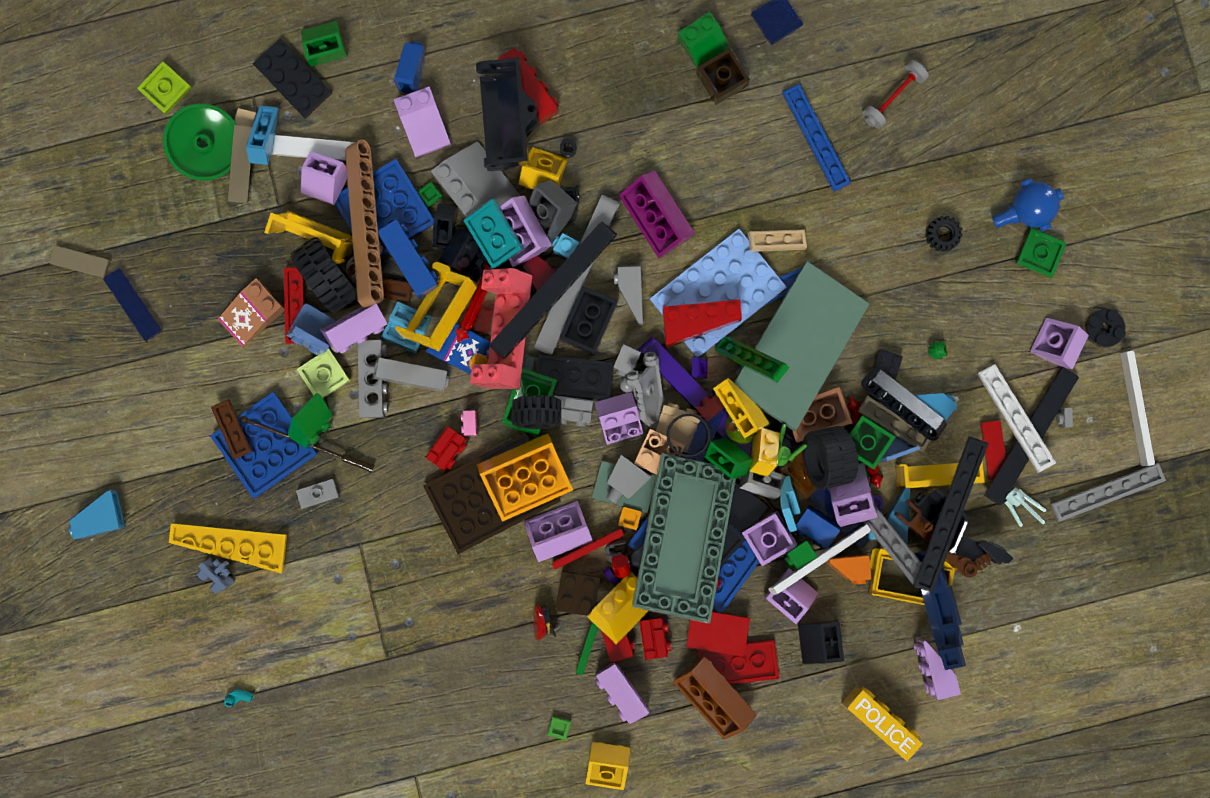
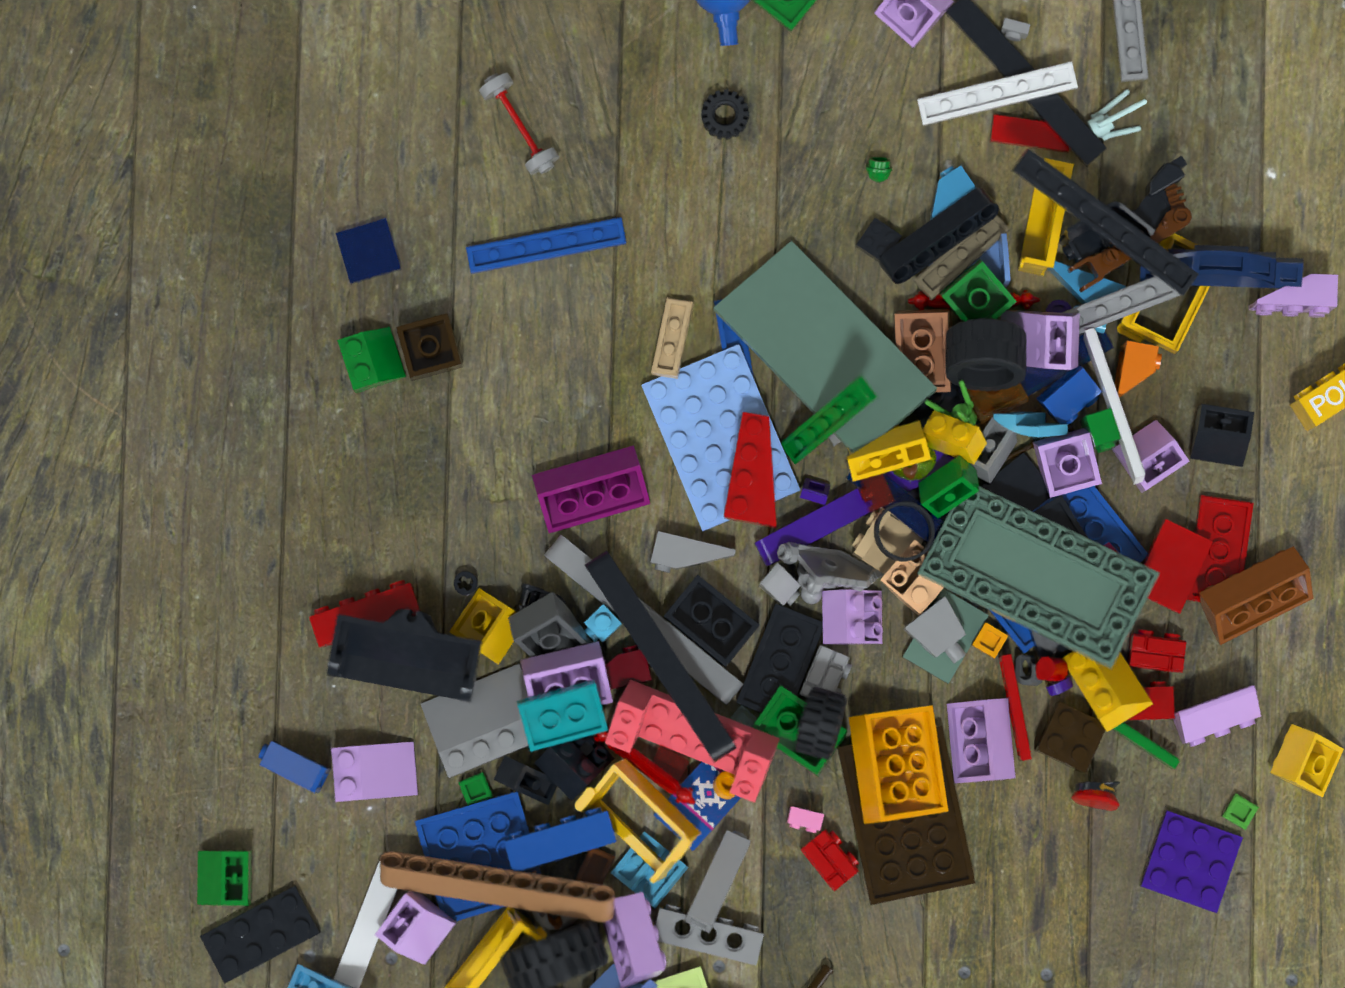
camera: 80 degrees left, 0 degrees up
(514, 702) = (1191, 861): none -> dark purple plate

